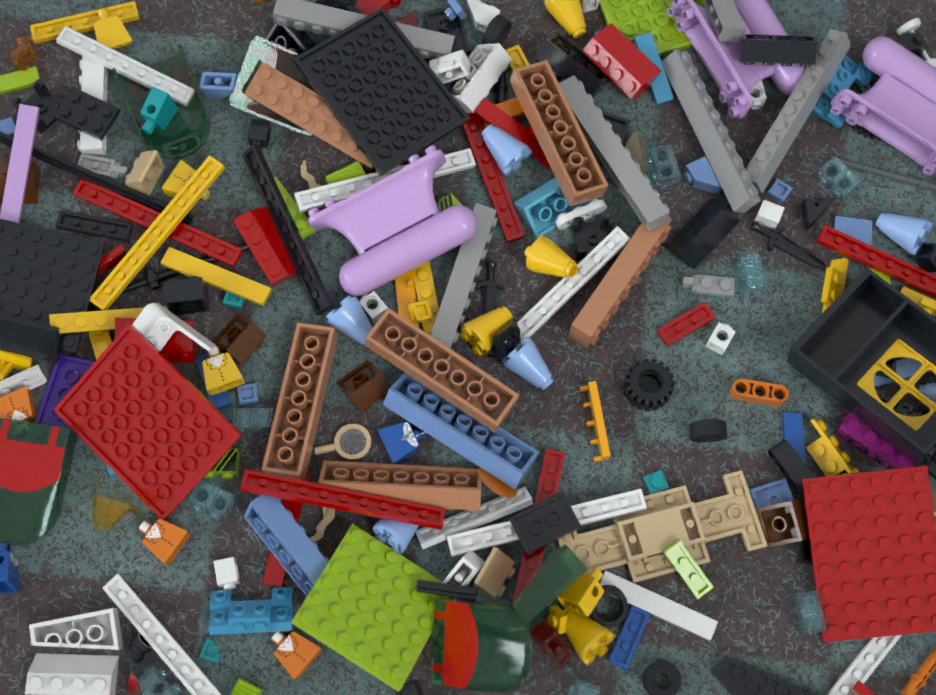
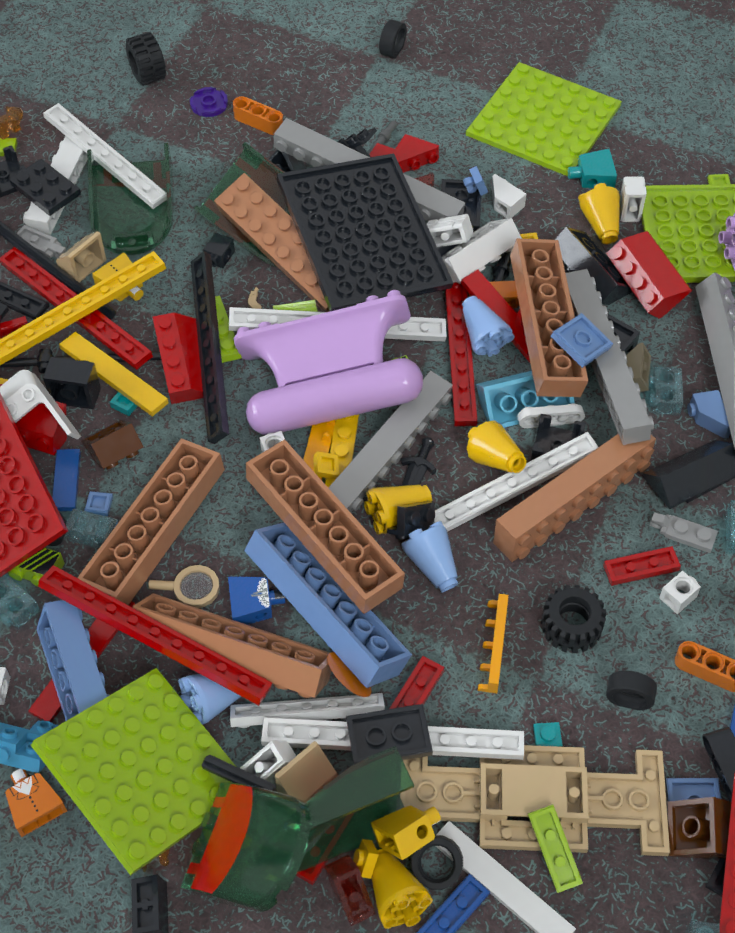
camera: 20 degrees right, 15 degrees down
(81, 22) = (88, 110): yellow plate -> none
(111, 30) = (105, 121): yellow torso -> none
(157, 111) = (119, 201): teal torso -> none
(217, 84) = (191, 192): medium blue slope -> none
(220, 372) = (75, 470): yellow torso -> none
(328, 517) = (136, 658): tan hair -> none
(351, 320) = (240, 448): light blue cone -> none
(364, 386) = (231, 529): reddish brown slope -> none
(497, 30) = (518, 209): black tyre -> none
(593, 150) = (581, 340): none -> medium blue tile
(660, 86) = (687, 309): dark azure tile -> none

